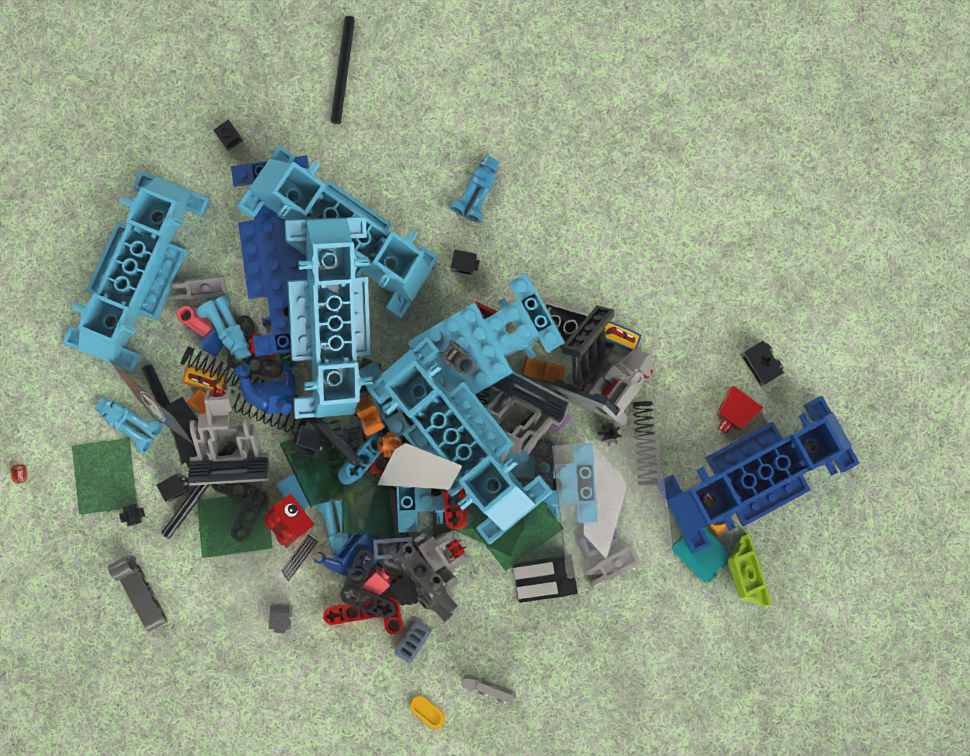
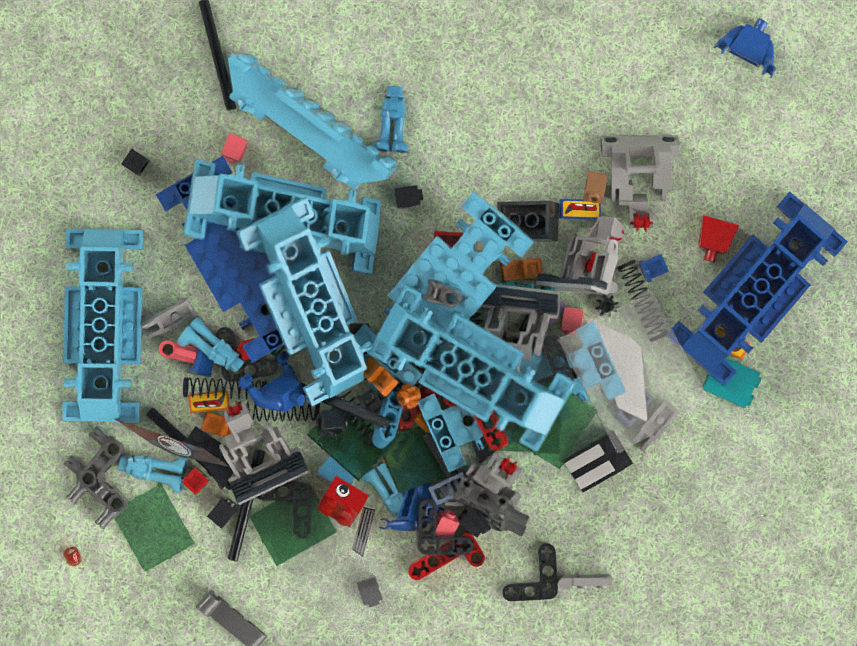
camera: 20 degrees left, 5 degrees up
(70, 417) = (99, 487): none -> dark grey pin
(132, 515) = (195, 553): black gear -> none
(160, 447) = (196, 480): none -> red brick
(324, 156) = (234, 148): none -> coral brick
(373, 121) = (269, 97): none -> medium azure piece
(403, 655) = (494, 581): sand blue slope -> none
(419, 468) = (445, 408): white sticker -> none
(427, 711) = (537, 623): yellow tile -> none
(443, 676) = (539, 586): none -> black beam
(572, 433) = (571, 319): none -> coral brick
(584, 345) = (556, 234): black fence -> none
(641, 320) = (595, 187): none -> medium nougat brick
(666, 416) = (653, 267): none -> blue tile
(674, 308) = (620, 150): none -> light grey container
(748, 573) = (781, 383): lime wing -> none
(767, 372) = (727, 192): black brick -> none
(835, 246) = (750, 45): none -> blue torso

